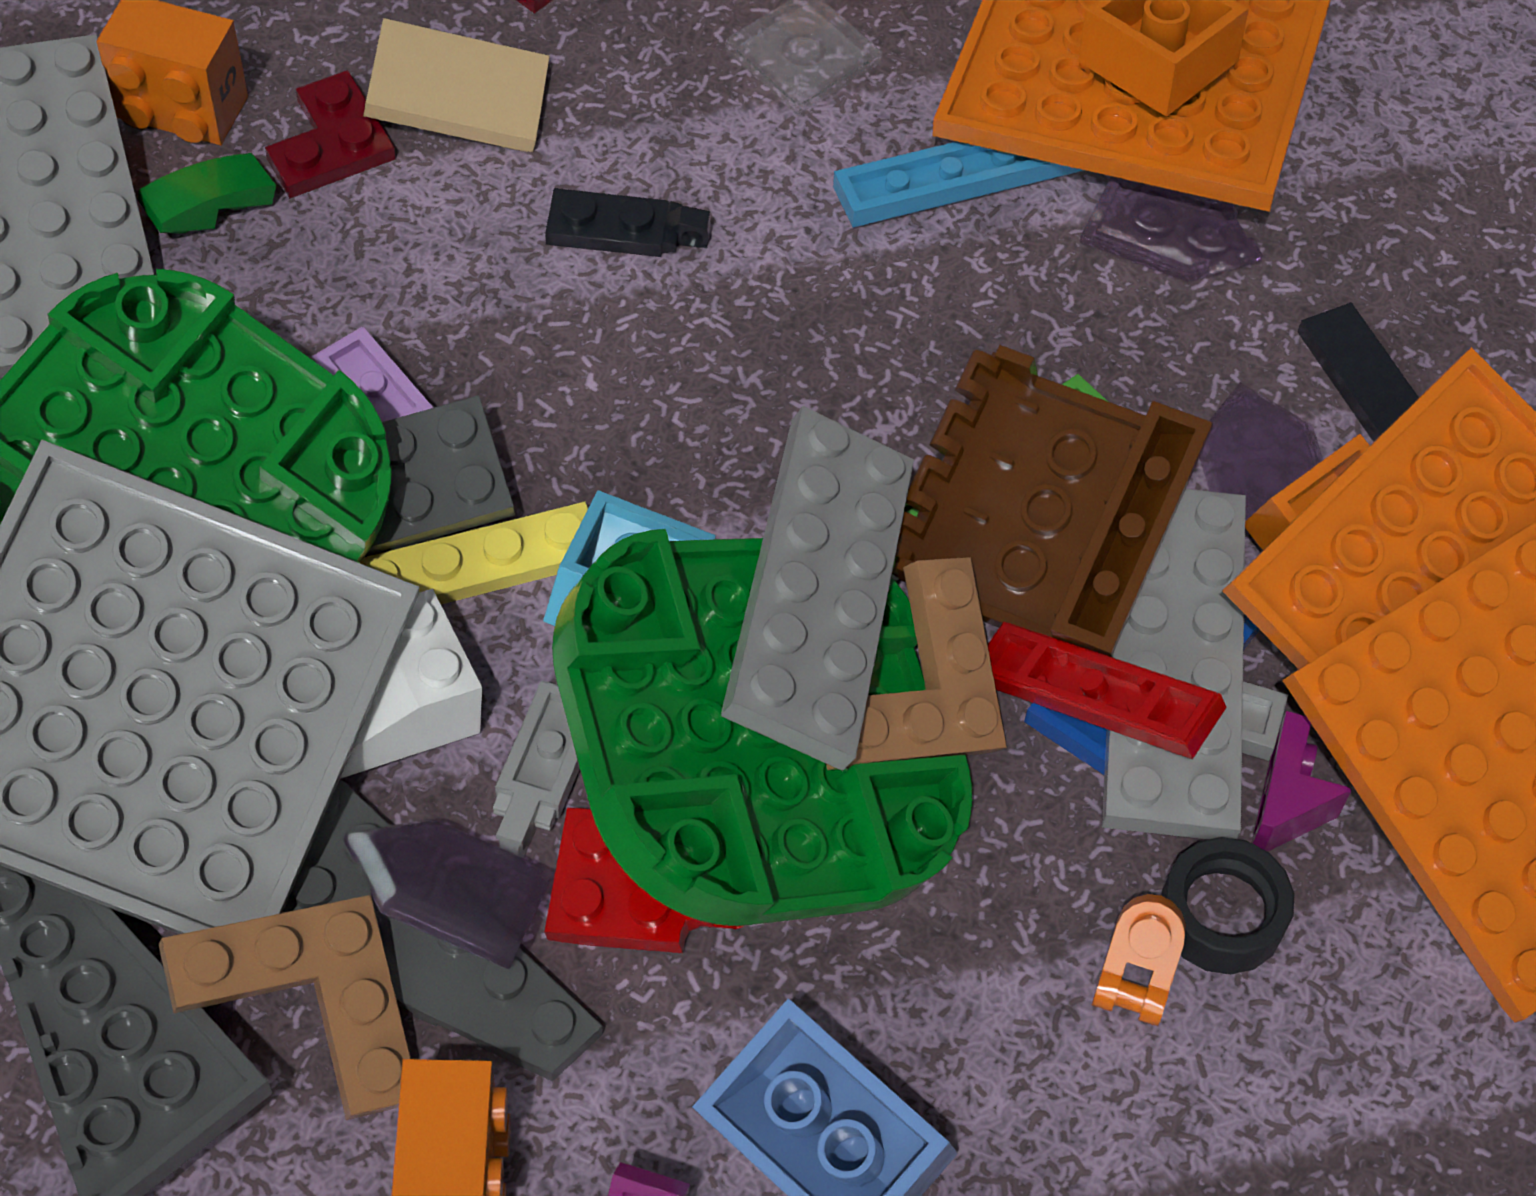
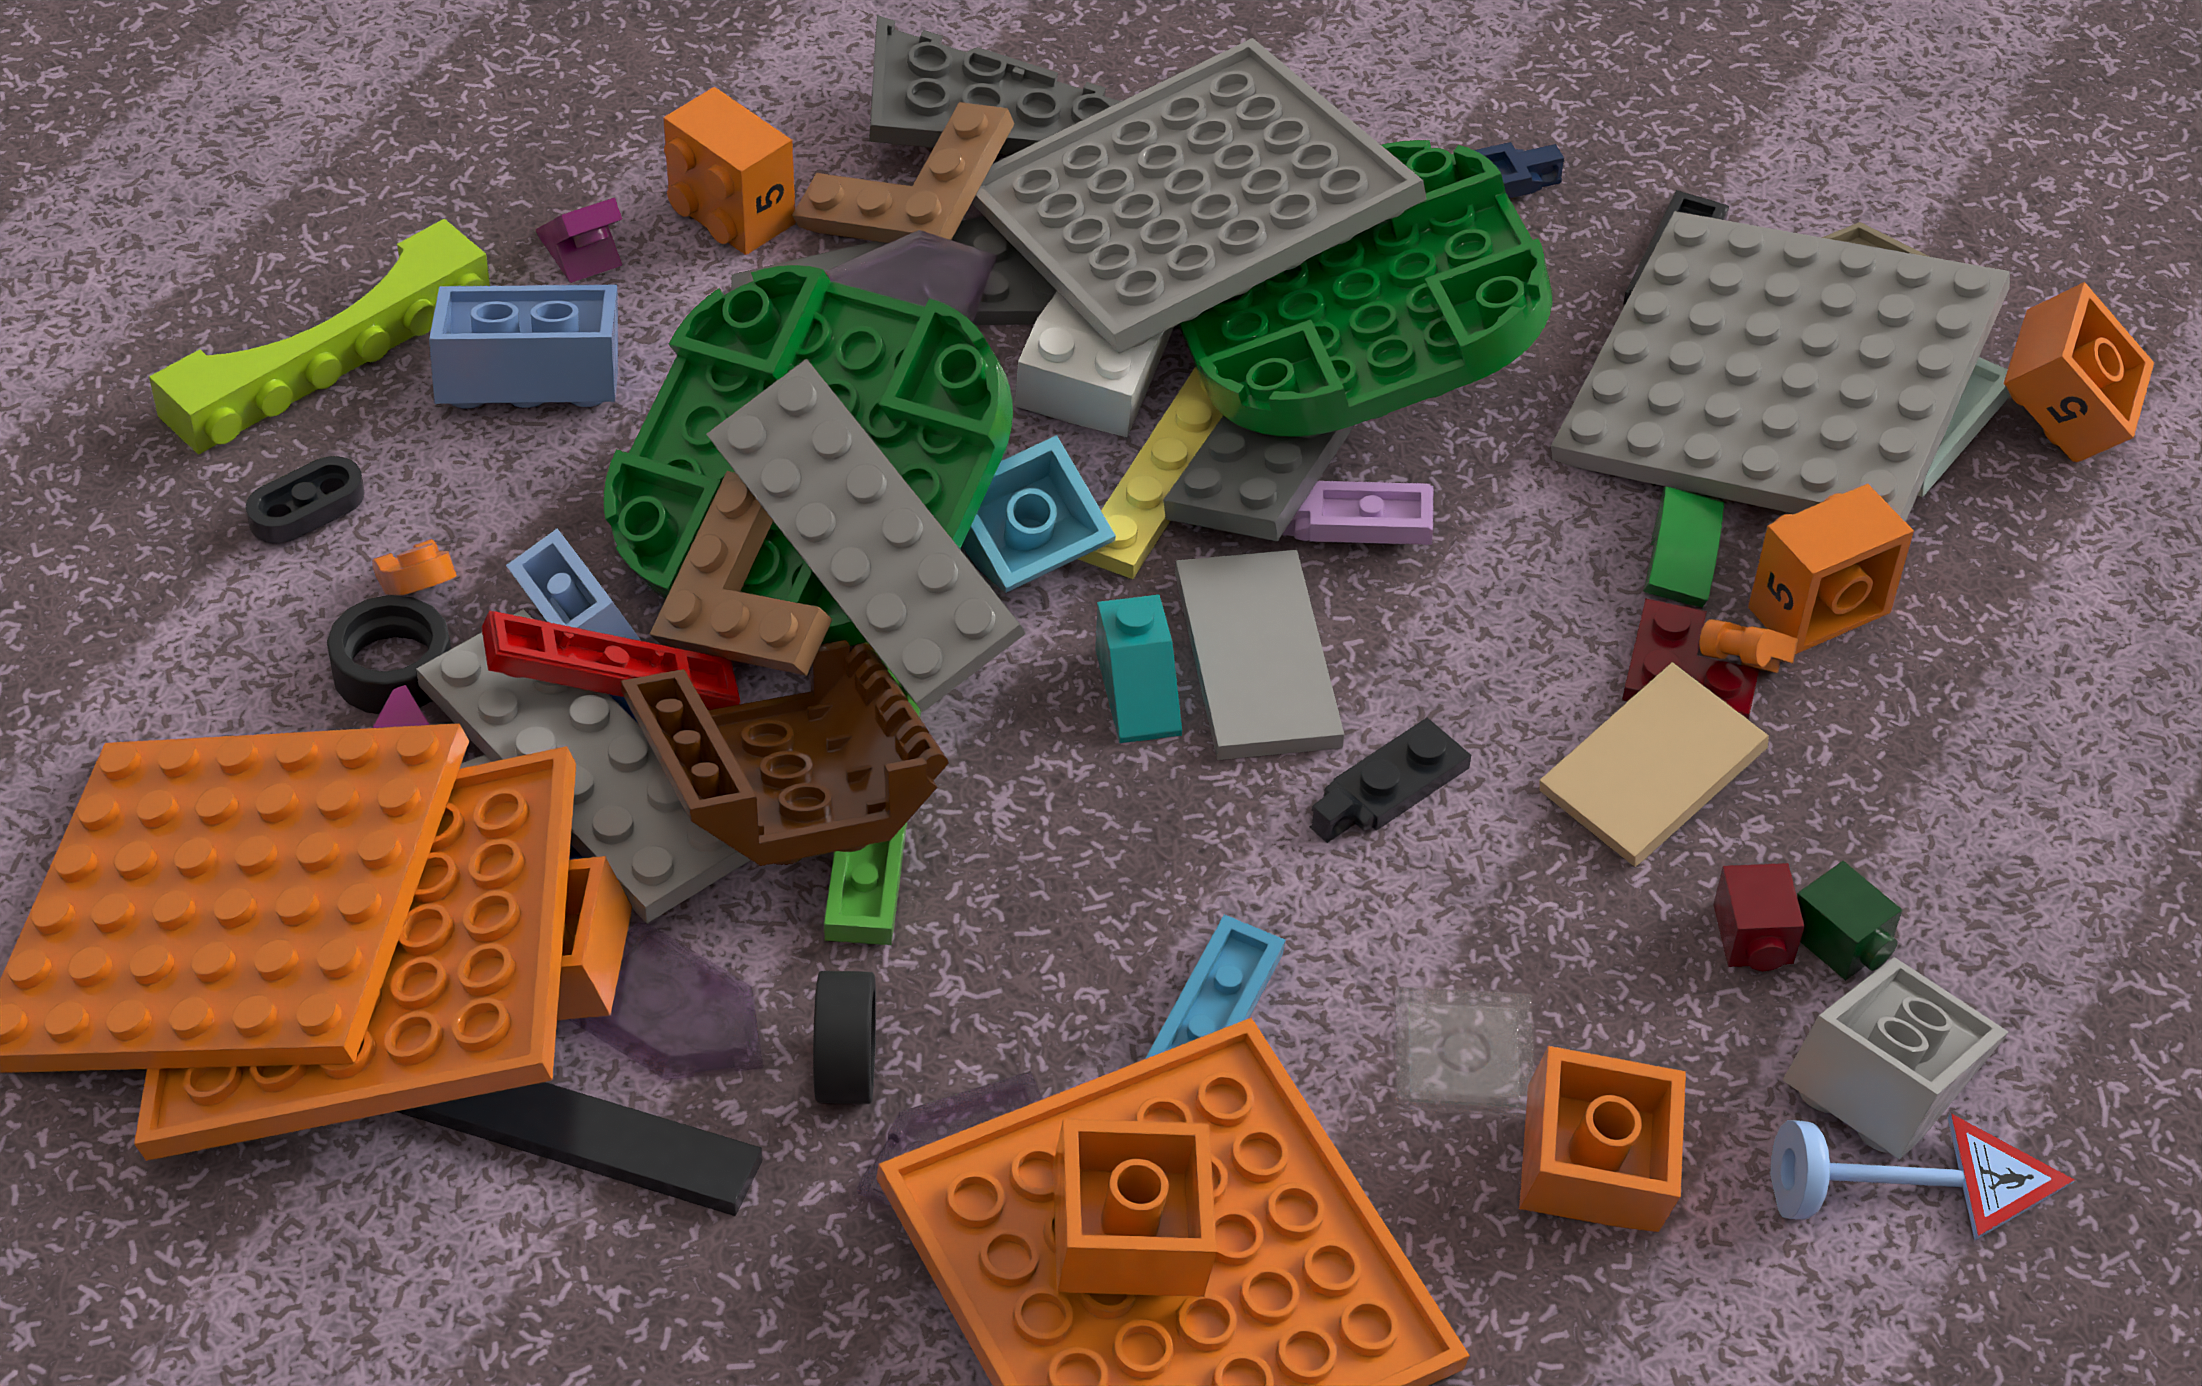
camera: 135 degrees right, 10 degrees down
(272, 86) = (1755, 645): none -> orange plate
(585, 375) = (1258, 655): none -> light grey tile
(686, 419) = (1138, 668): none -> teal slope
(1053, 799) = (566, 588): none -> light blue brick
(1161, 1139) = (300, 499): none -> black plate
(1195, 312) = (844, 1037): none -> black tyre

